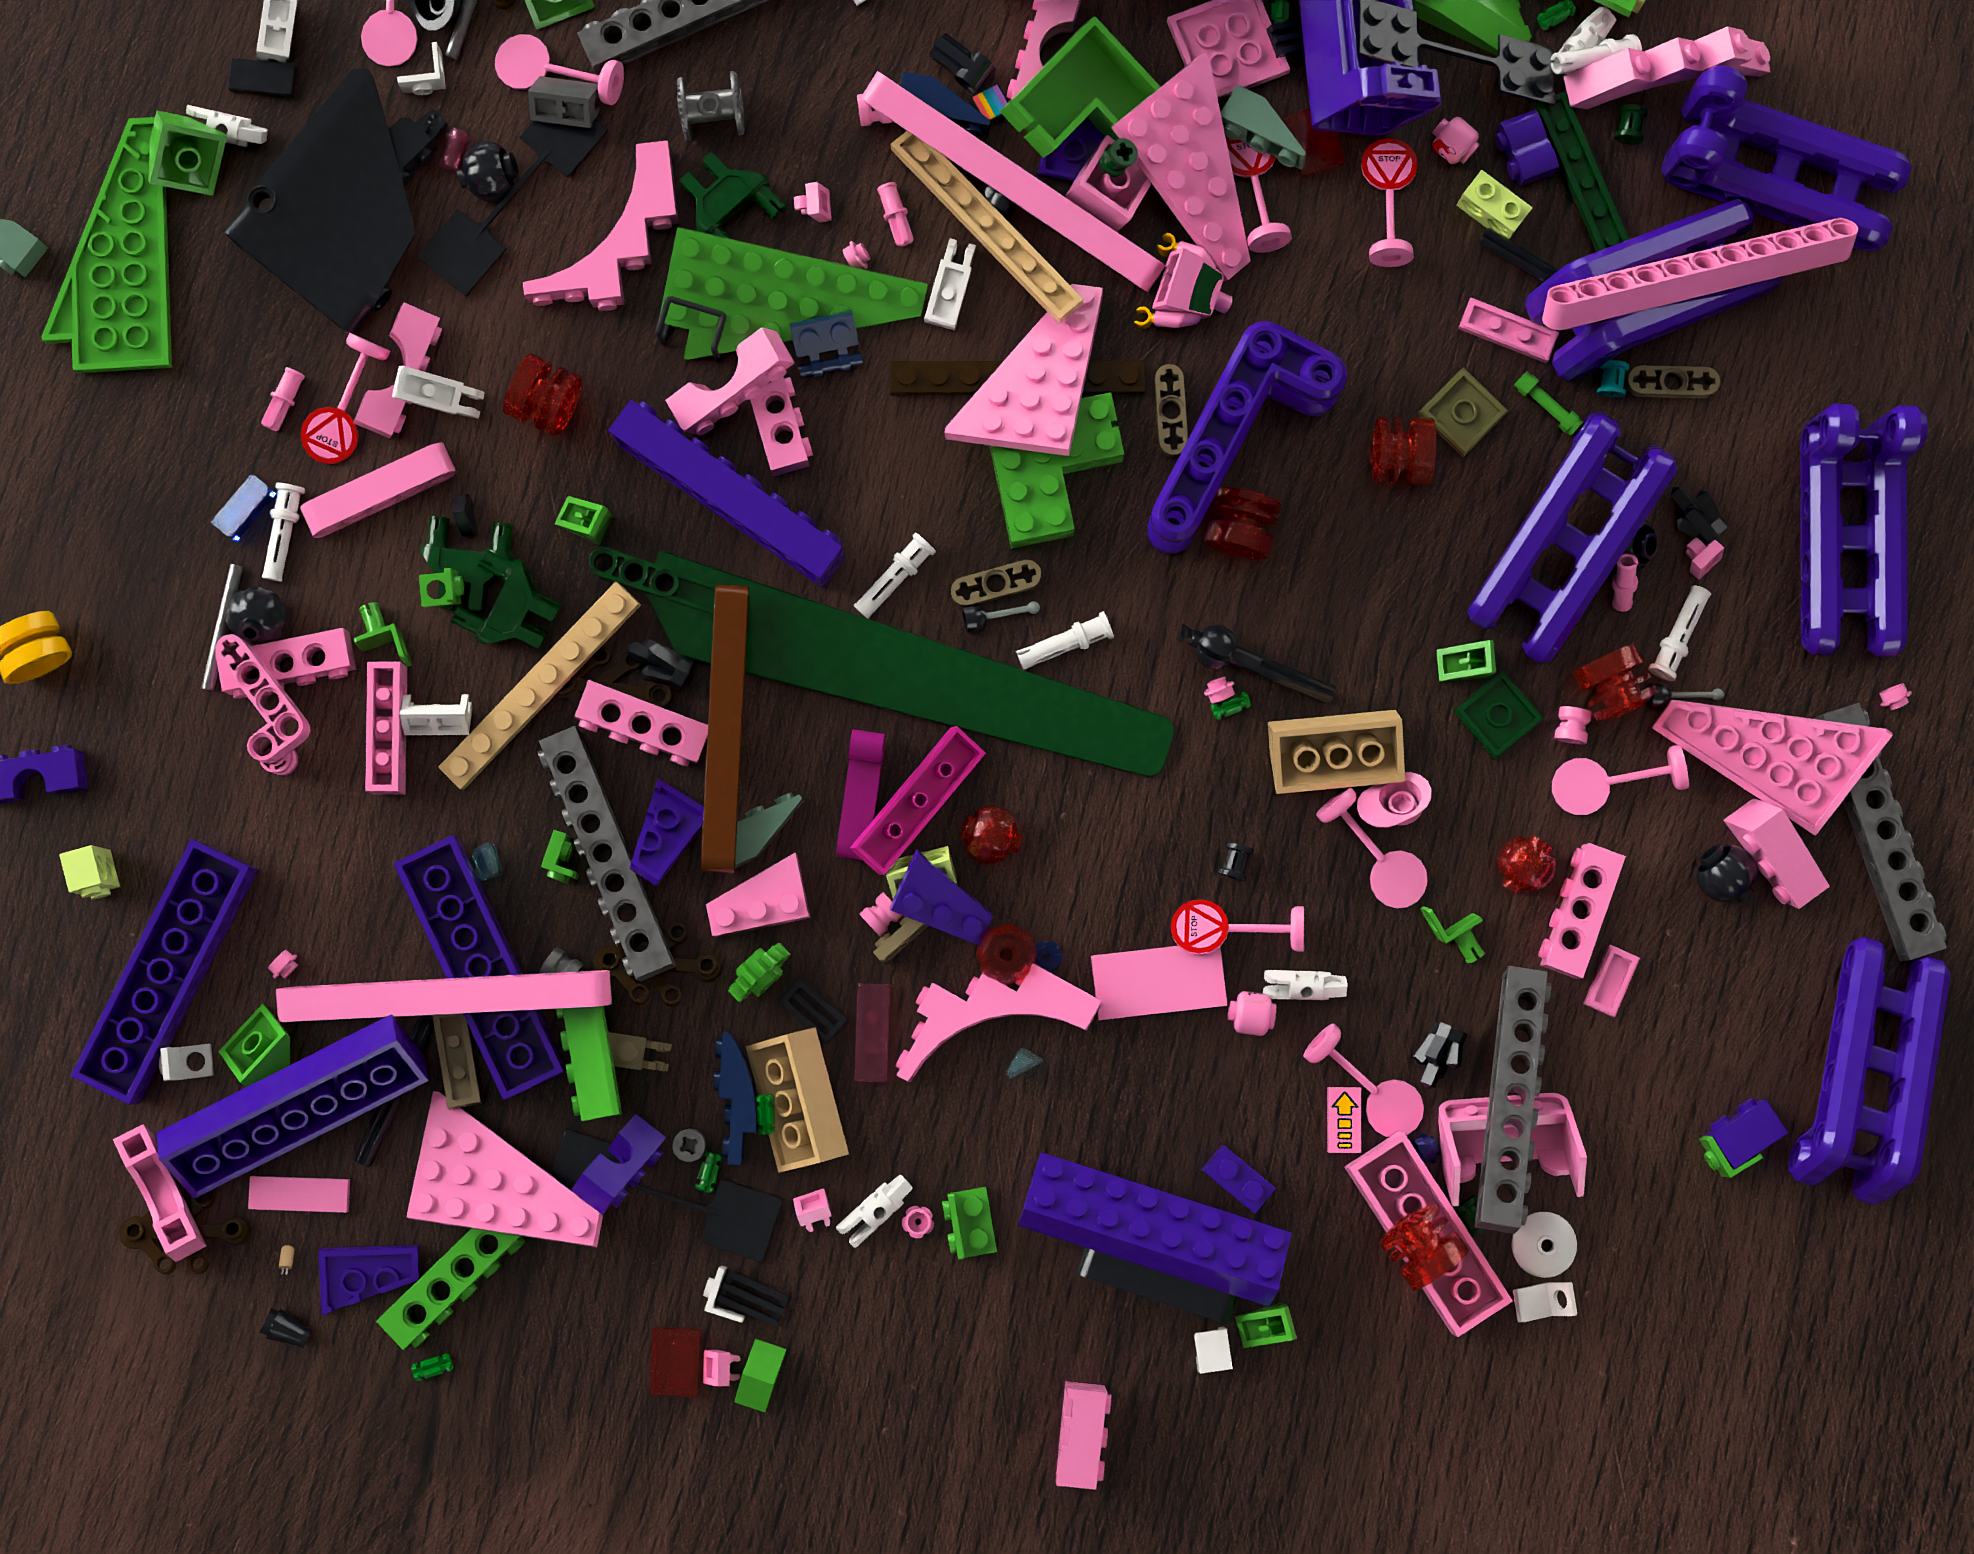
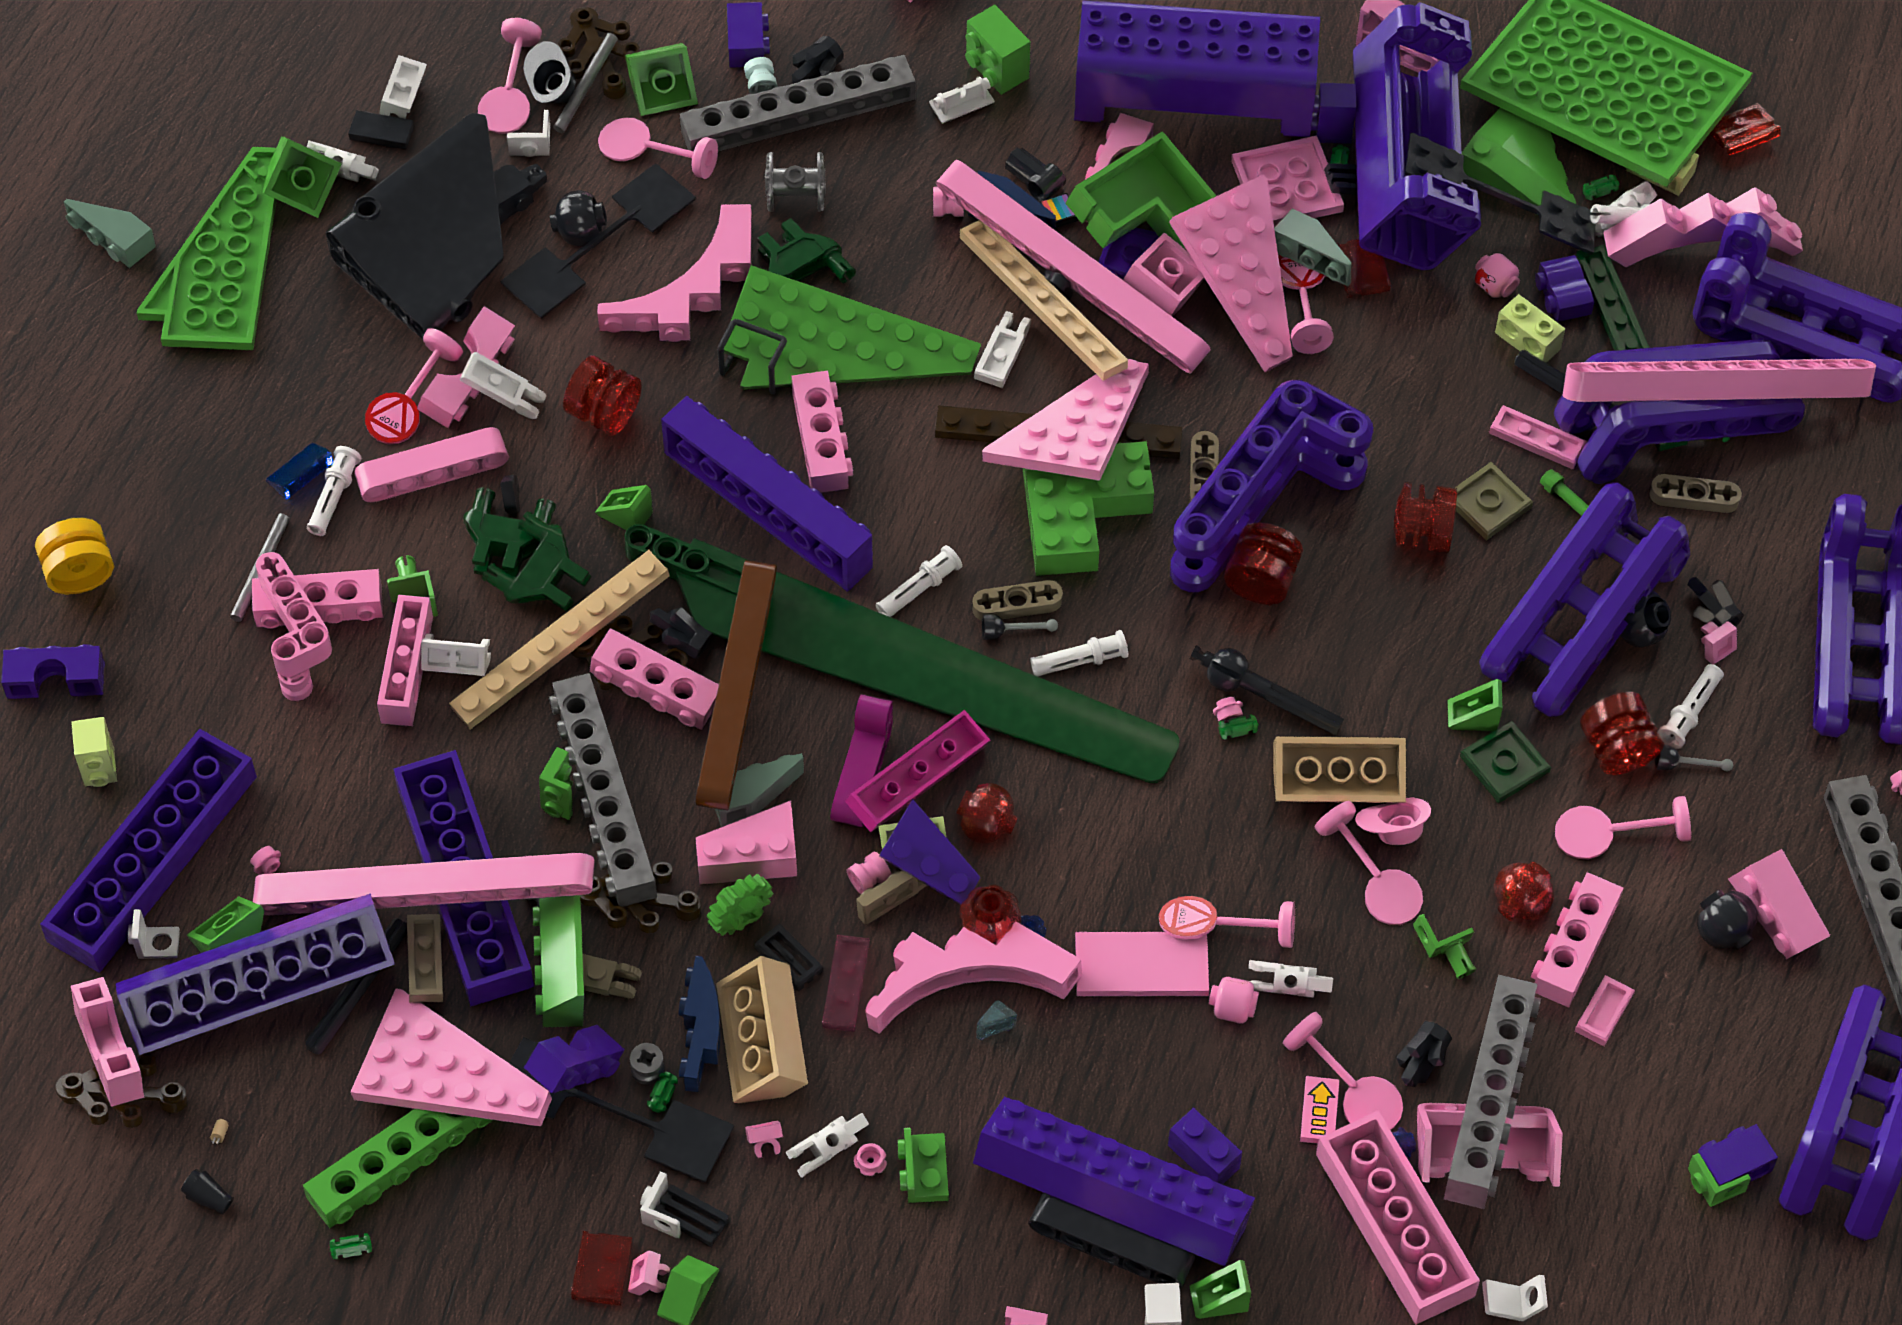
camera: 10 degrees right, 25 degrees down
(257, 615) = (300, 548): black plant -> none
(282, 399) = (353, 383): bright pink axle -> none
(299, 1194) = (243, 1071): bright pink tile -> none
(362, 1272) = (296, 1148): dark purple wing -> none
(453, 584) = (491, 539): bright green bracket -> none
(454, 149) = (547, 204): clear pink pin -> none
(487, 861) = (483, 789): clear light blue slope -> none
(563, 102) = (657, 169): dark grey hinge -> none
(667, 832) = (664, 776): dark purple wing -> none
(760, 360) = (812, 381): bright pink arch -> none
(765, 1114) = (728, 1038): green piece -> none
(815, 202) = (882, 270): bright pink tile -> none
(823, 335) = (878, 374): dark blue plate -> none
(856, 255) = (916, 314): bright pink plate -> none
(895, 214) = (957, 287): bright pink axle -> none
(1118, 157) = (1173, 245): dark green bush -> none
(1187, 287) = (1228, 370): bright pink torso -> none
(1229, 868) = (1230, 861): black bush -> none
(1390, 167) = (1432, 294): bright pink piece -> none
(1421, 1243) = (1388, 1202): clear red wheel -> none
(1467, 1213) = (1448, 1210): dark green bush -> none
(1528, 1240) = (1518, 1265): white dish -> none
(1573, 725) = (1578, 776): bright pink wheel -> none
(1613, 379) = (1637, 483): teal bush -> none
(1625, 582) = (1636, 649): bright pink pin -> none
(1629, 113) = (1666, 278): dark green bush -> none
(1777, 757) = (1805, 816): bright pink wing -> none

